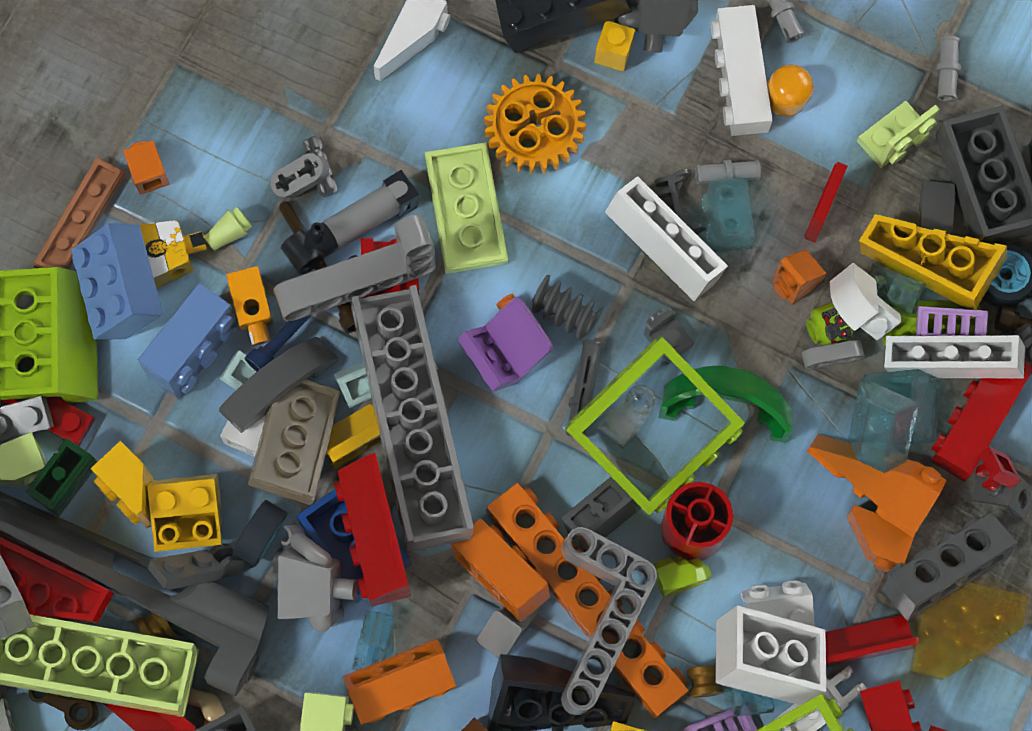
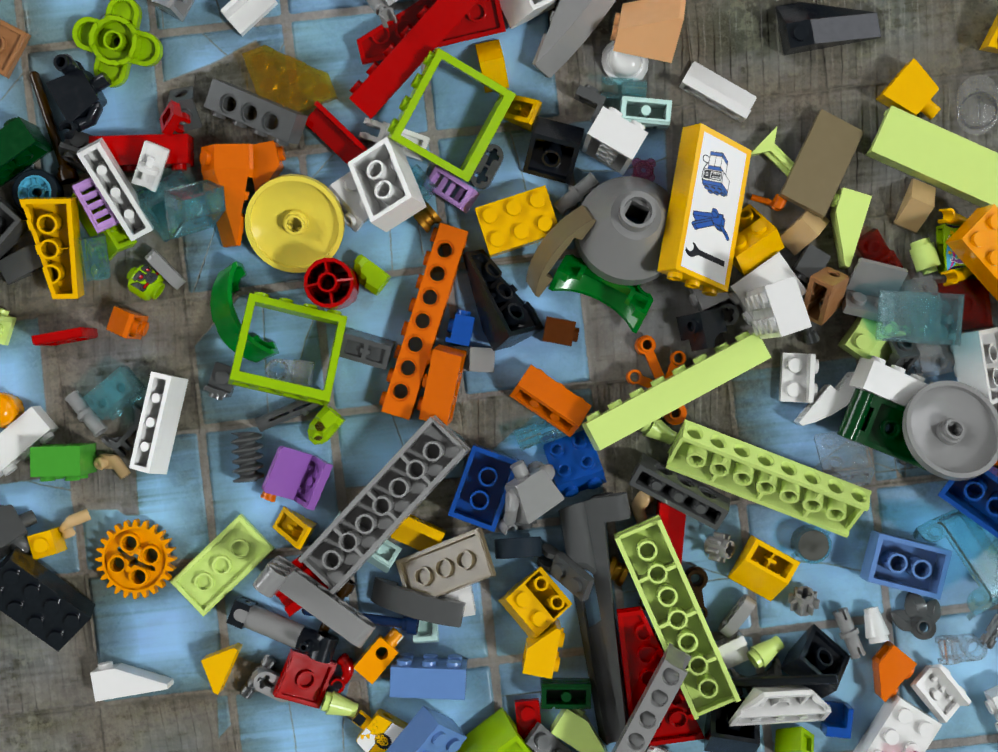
camera: 125 degrees left, 15 degrees up
(266, 266) = (347, 670): none -> red arm
(281, 210) = (304, 679): none -> red tile
(307, 659) = (575, 464): none -> blue bracket
(359, 134) = (219, 666): none -> yellow slope
(373, 532) = (474, 476): red slope -> none
(452, 307) = (294, 527): none -> yellow slope
(544, 413) = (324, 425): none -> lime rock
(550, 635) = (461, 328): none -> blue brick
(611, 617) = (428, 297): light grey beam -> none
(620, 86) = (72, 521): none -> tan arm
(656, 166) = (112, 461): none -> tan arm
(691, 115) = (62, 460): none -> bright green brick
(793, 527) = (294, 222): none -> light yellow dish
(858, 304) = (121, 272): white brick -> none
(958, 409) = (150, 165): none -> white hips

